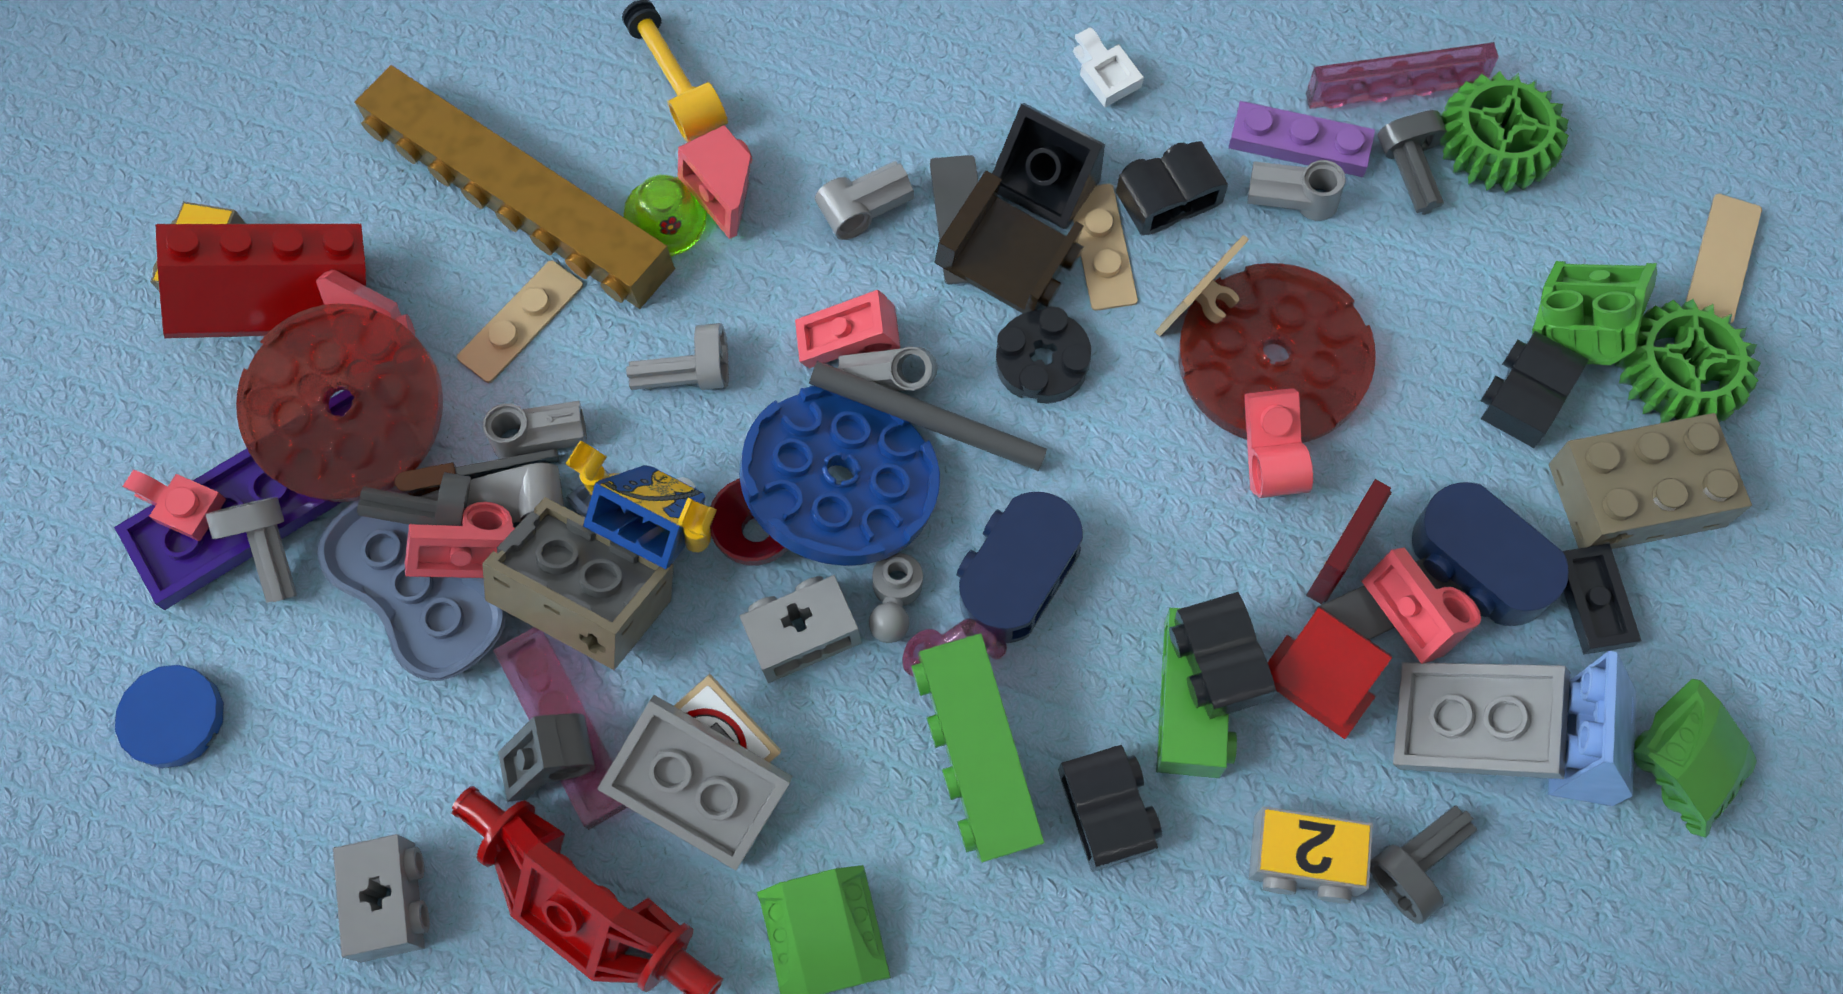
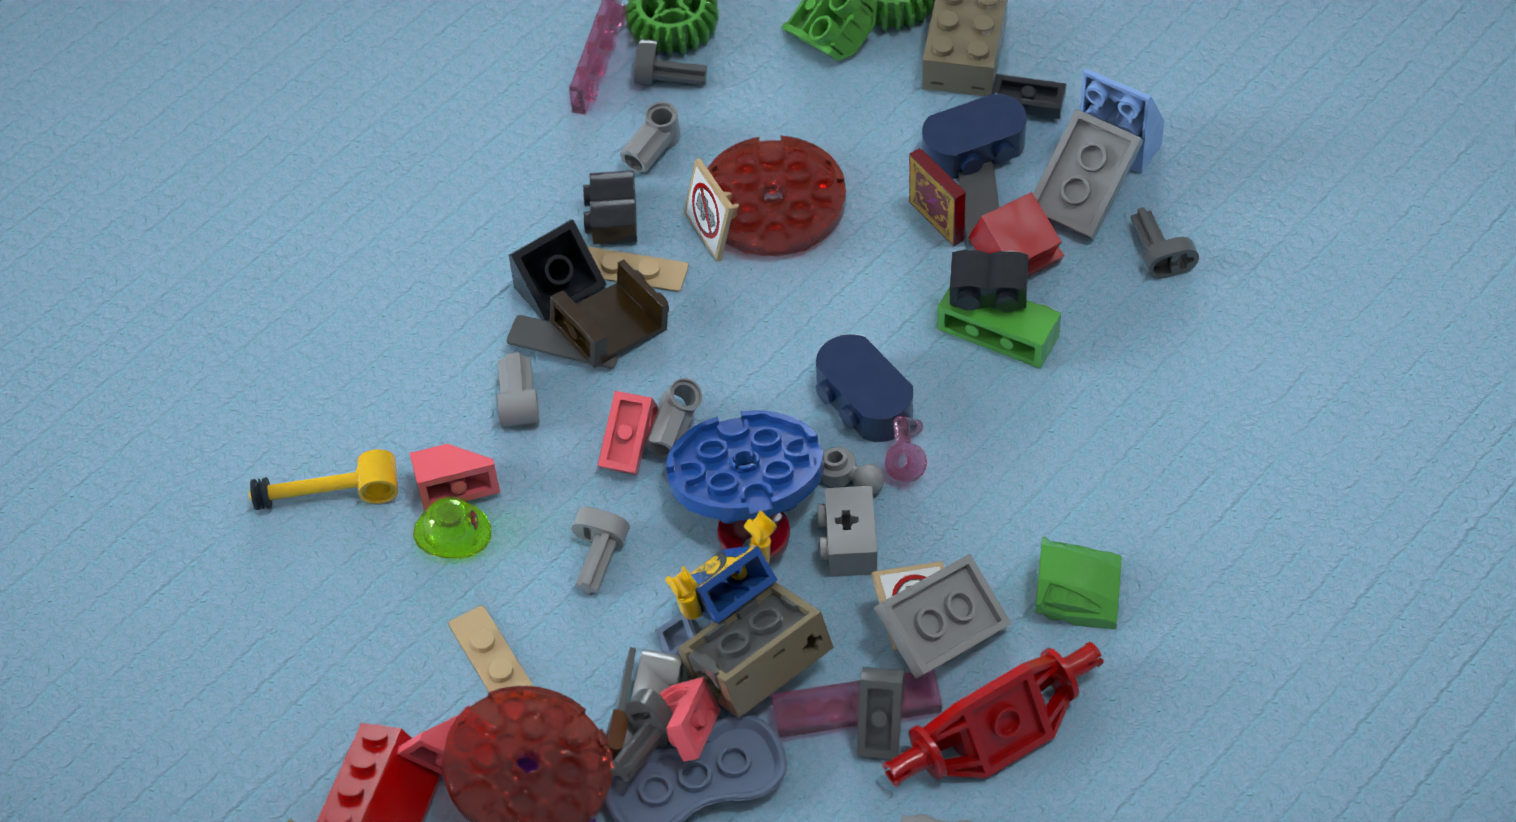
camera: 70 degrees left, 15 degrees down
(515, 187) = (368, 623): pearl gold brick -> none
(538, 428) = (604, 660): light grey piece -> none
(927, 416) = (722, 403): dark grey piece -> none
(979, 748) = (988, 442): bright green brick -> none
(1047, 330) = (698, 311): black plate -> none
(1105, 71) = (492, 211): white plate -> none
(1109, 807) = (1057, 394): black brick -> none
(1276, 454) = (855, 218): coral plate -> none
(1301, 138) = (609, 126): medium lavender plate -> none
(1310, 854) = (1132, 297): brick -> none
(1425, 617) = (998, 180): coral plate -> none
(1533, 388) = (870, 71): black brick -> none
(1695, 756) = (1165, 85): bright green slope -> none

